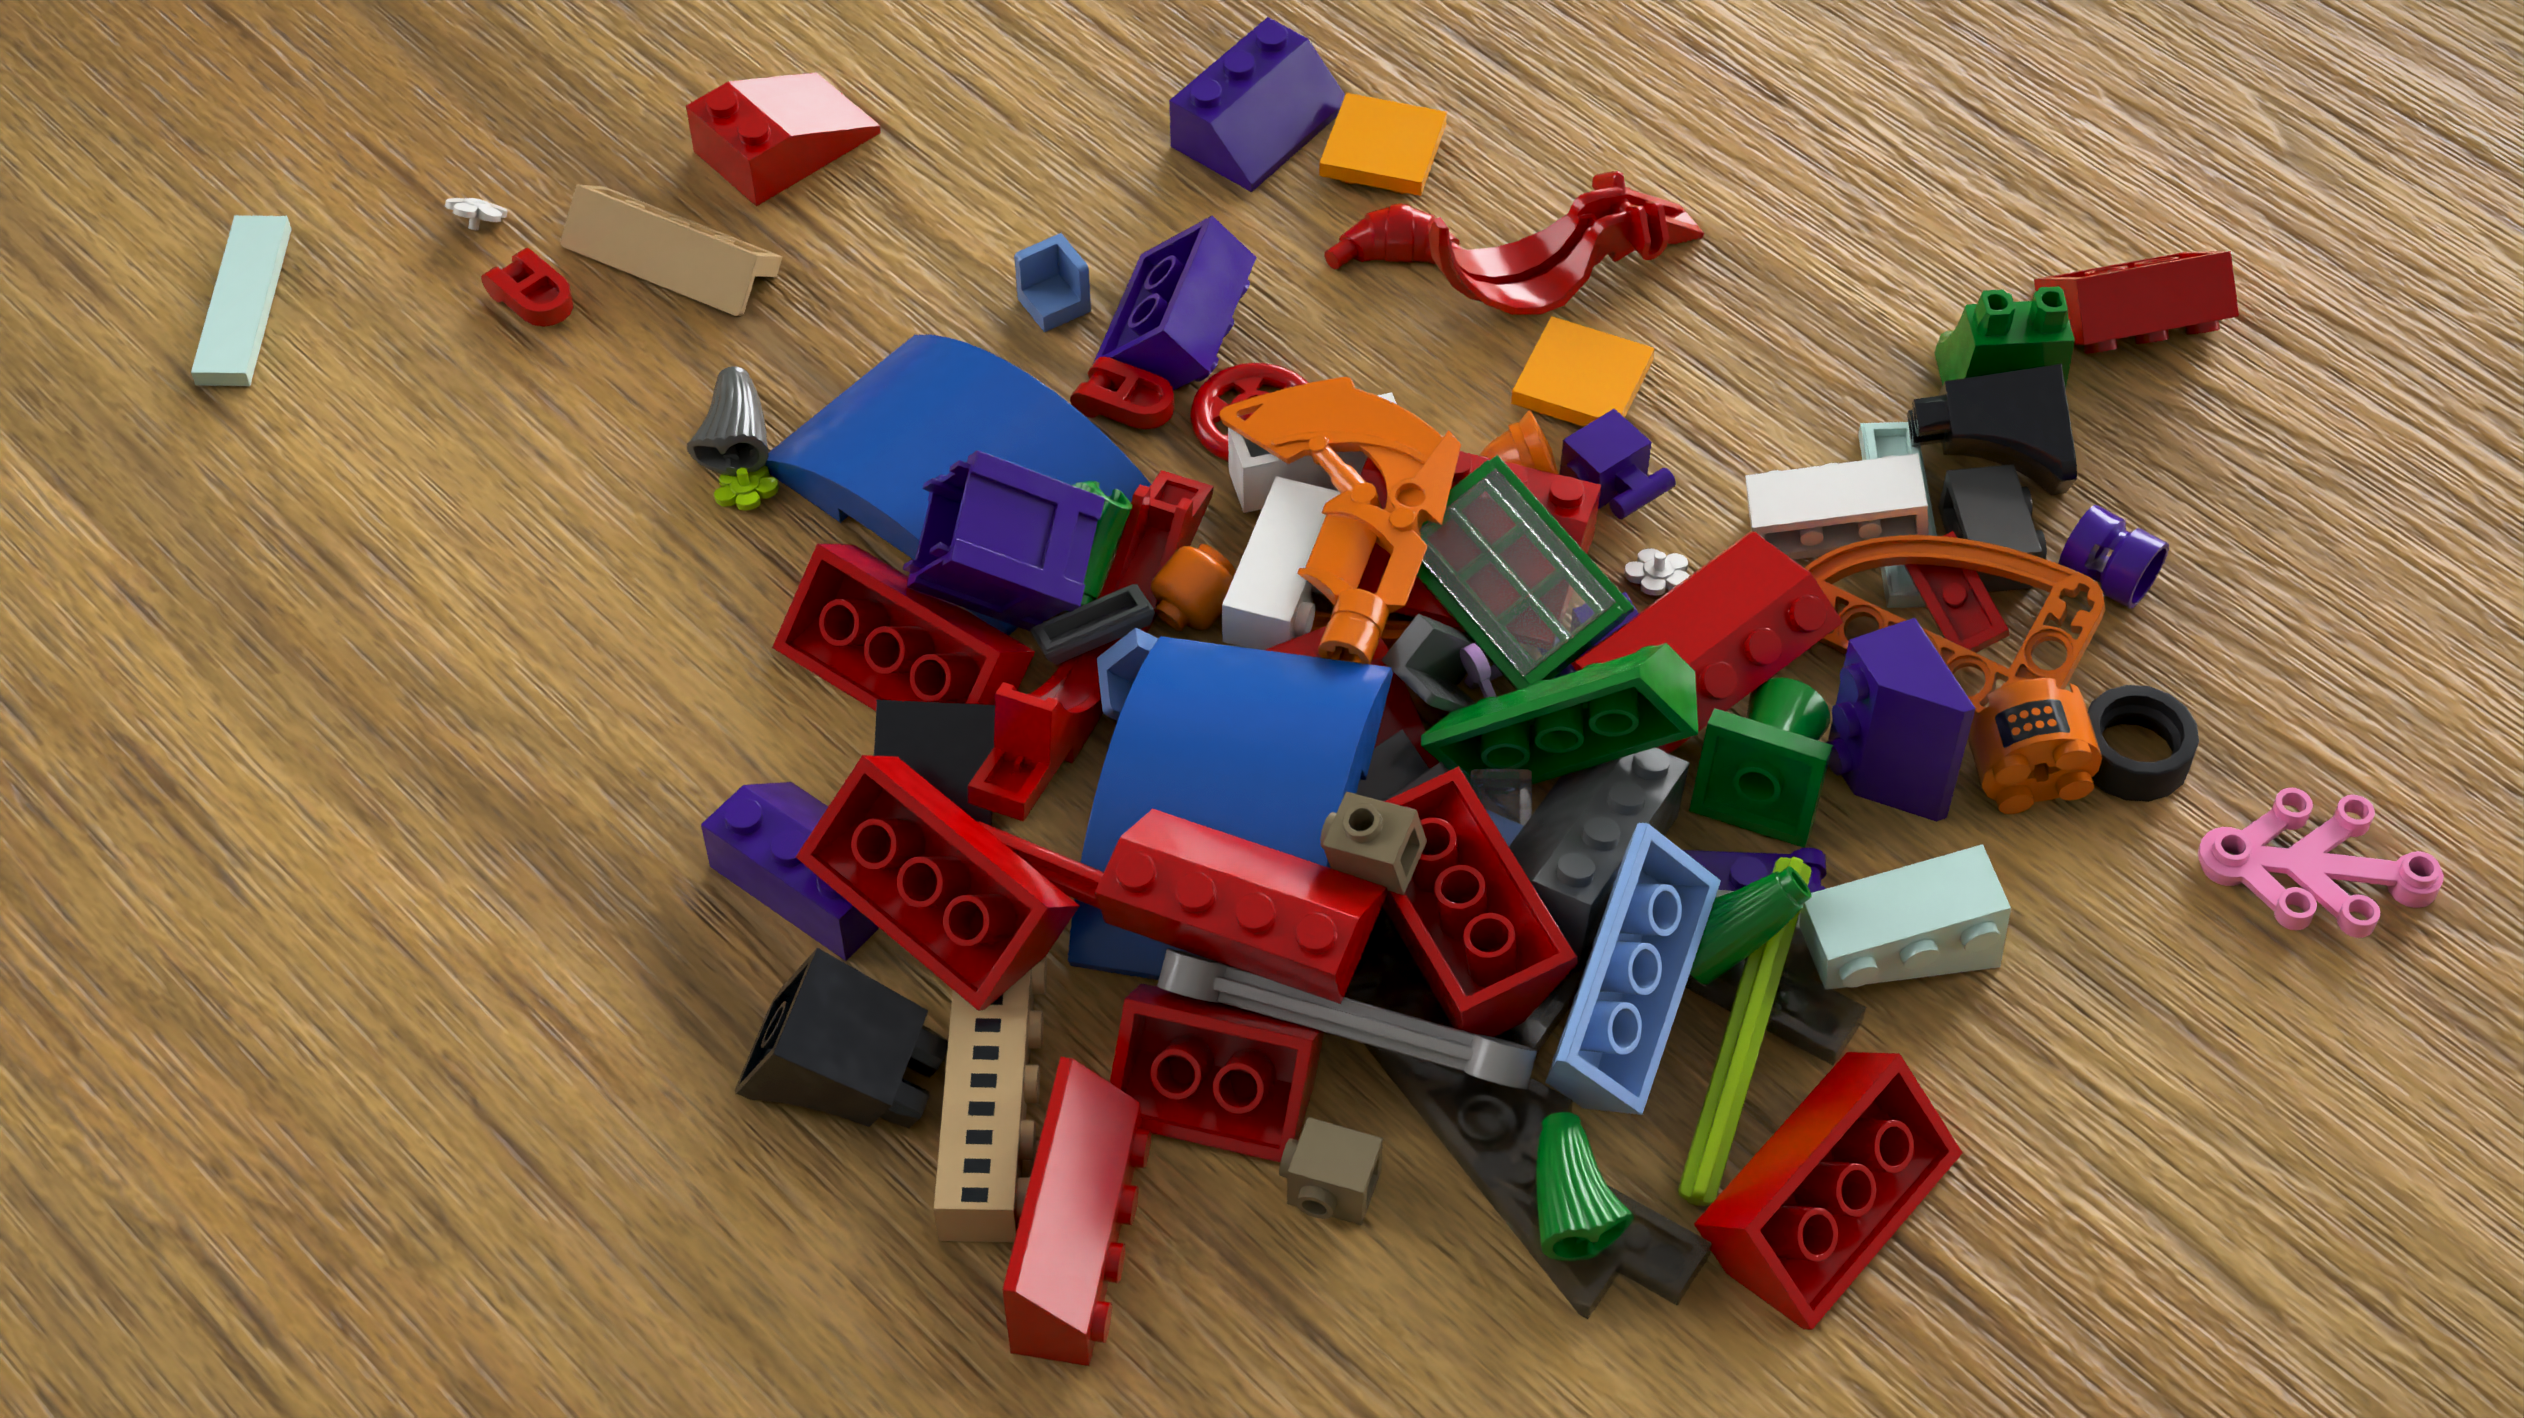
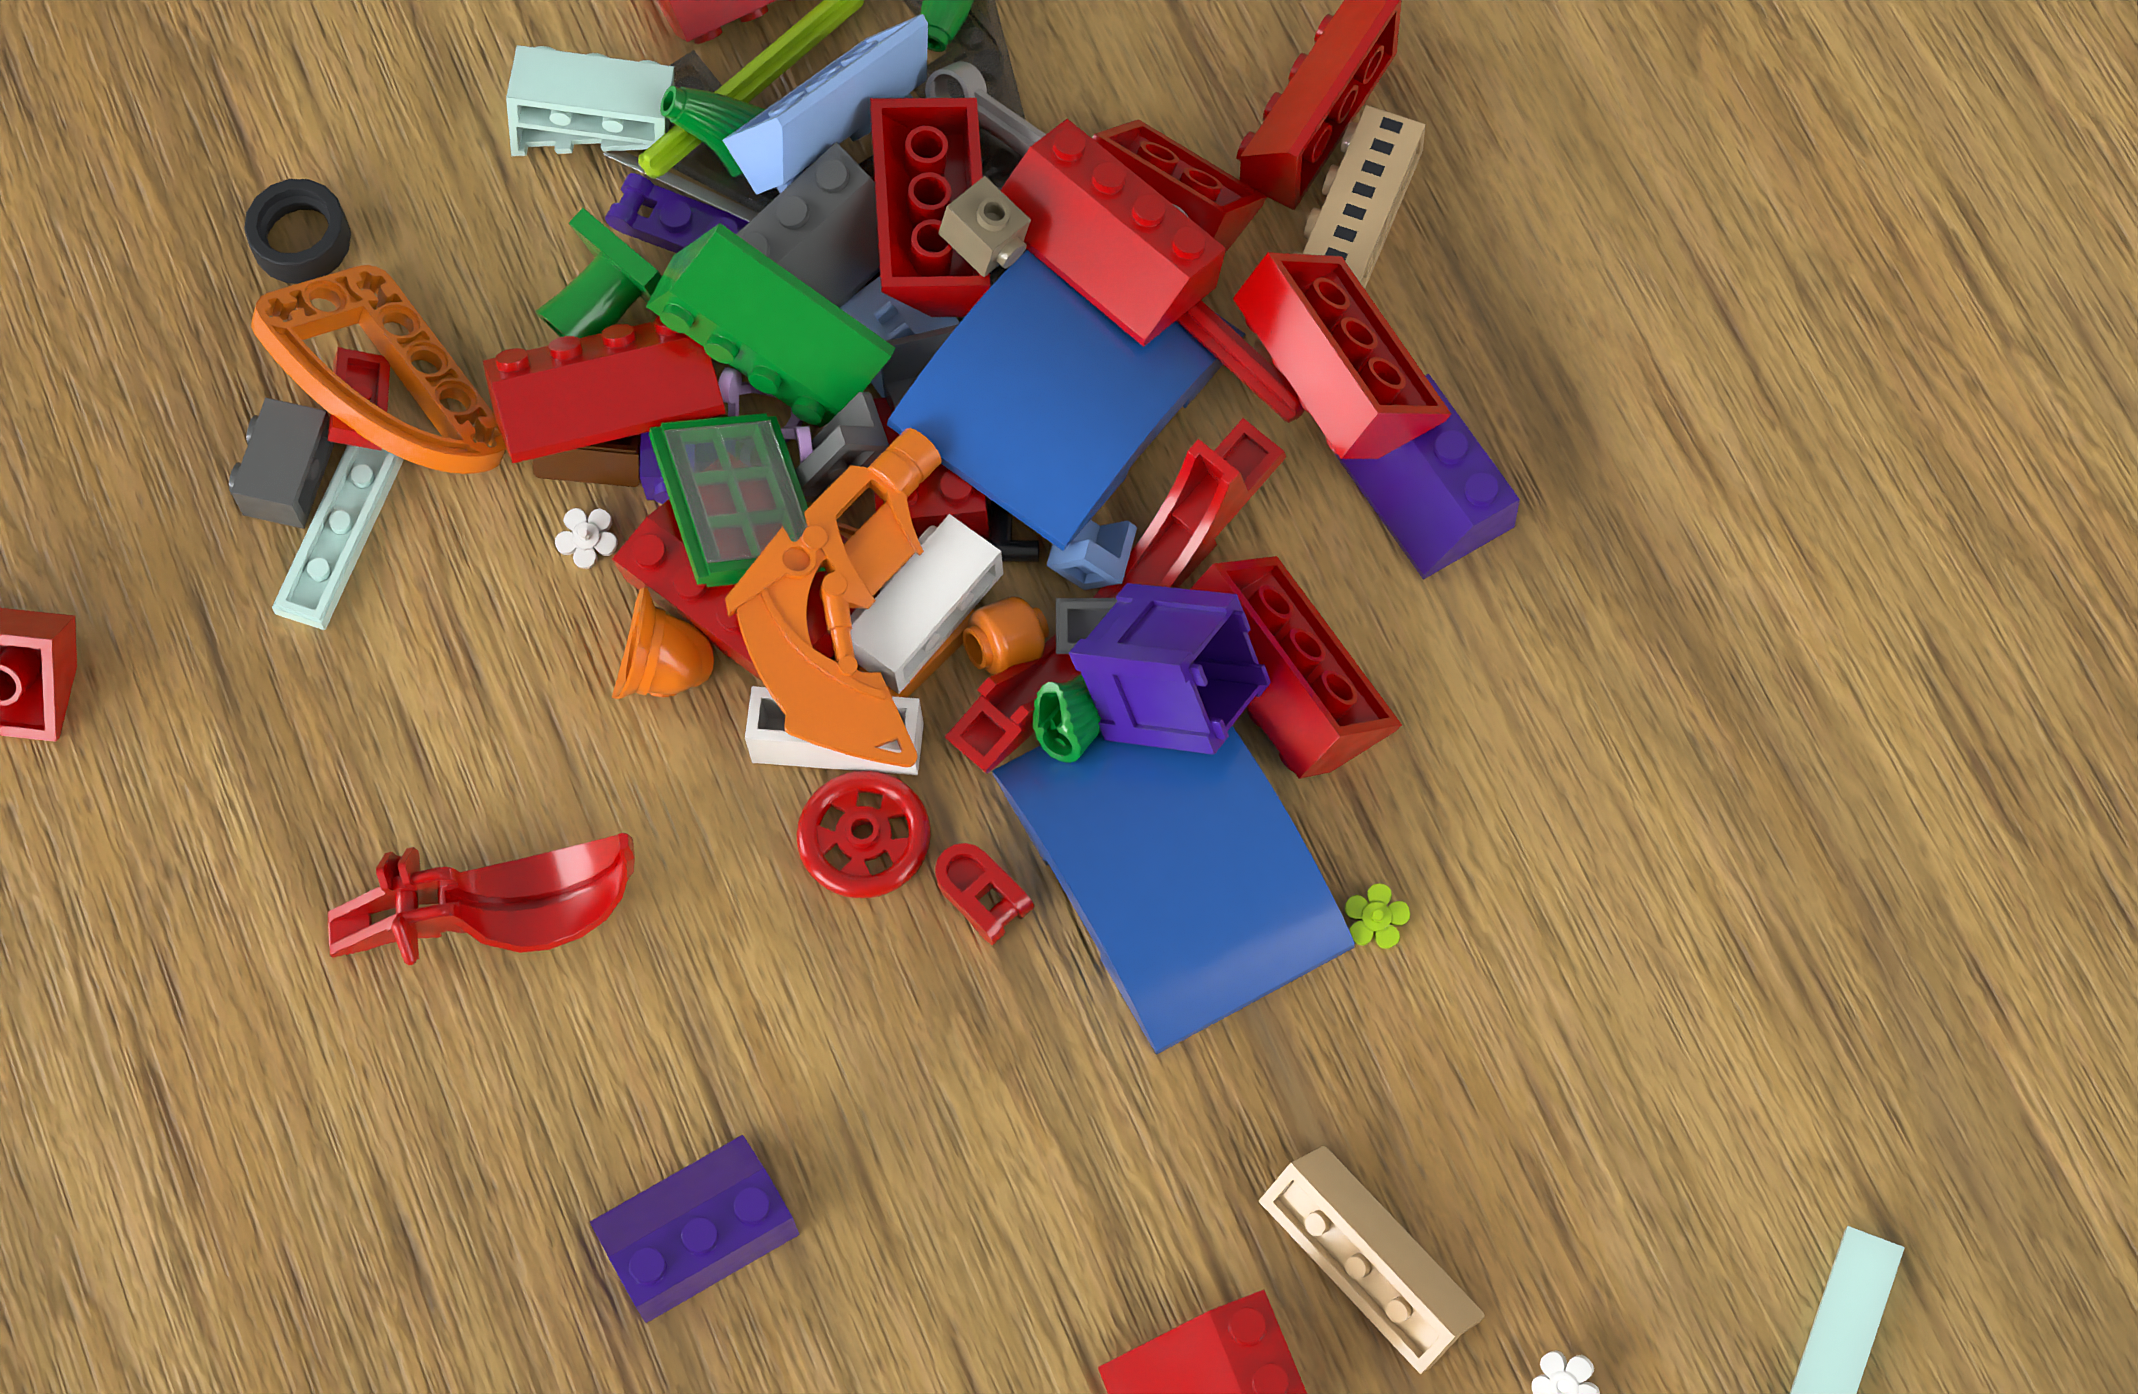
camera: 155 degrees left, 15 degrees up
(531, 289) = (1521, 1224): red plate -> none
(734, 427) = (1371, 969): dark grey piece -> none
(842, 1047) = (1464, 290): black hips -> none
(940, 743) = (1298, 528): black piece -> none
(1052, 282) = (1000, 1050): medium blue panel -> none
(1180, 304) = (893, 973): dark purple slope -> none
(1331, 1171) = (1111, 84): dark tan brick -> none
(1383, 144) = (587, 1128): light orange tile -> none
(1387, 234) = (628, 1006): red piece -> none
(1581, 373) = (543, 758): light orange tile -> none
(1616, 458) = (574, 645): dark purple brick -> none
(1838, 504) = (405, 515): white brick -> none
(1899, 722) = (496, 254): dark purple slope -> none
(2006, 420) = (217, 529): black hips -> none
(2007, 336) = (156, 626): green hips -> none
(2034, 745) = (392, 224): orange brick -> none
(2134, 559) = (201, 392): dark purple wheel -> none
(2314, 867) = (233, 94): bright pink plant -> none

